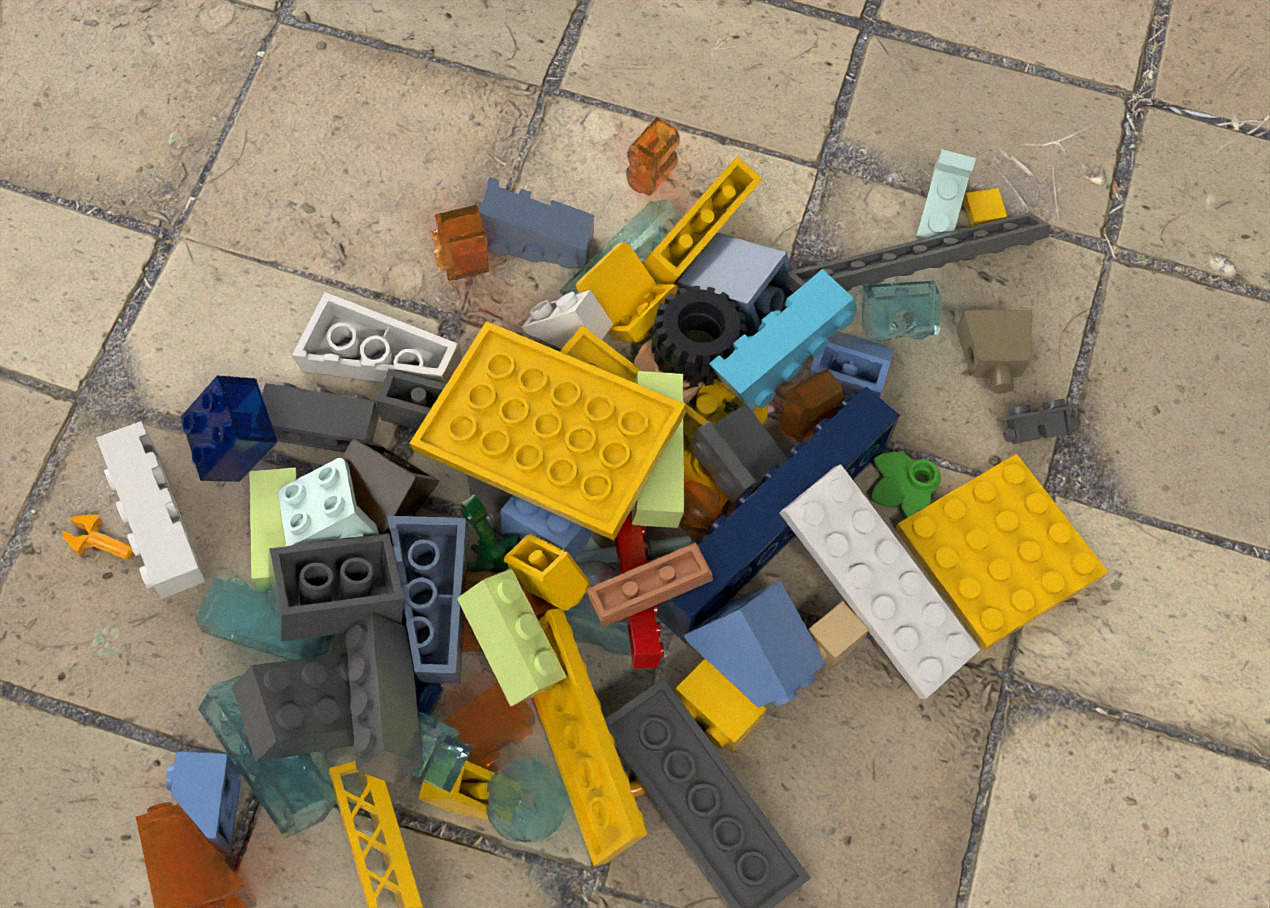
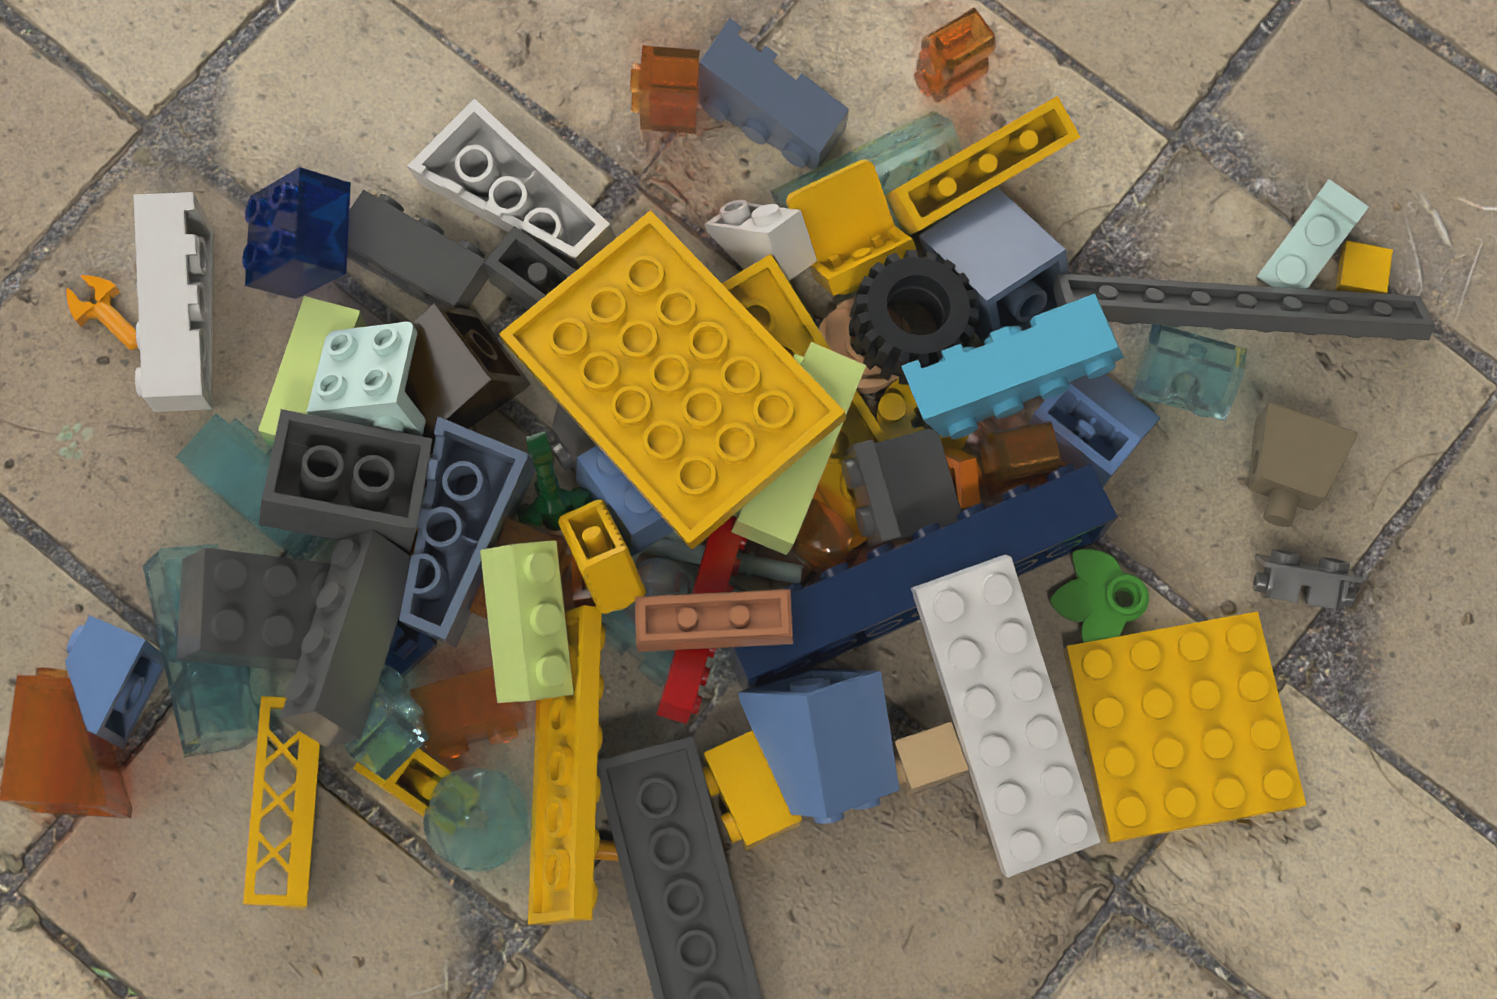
camera: 20 degrees right, 10 degrees up
(779, 431) = (965, 476): none -> orange plate

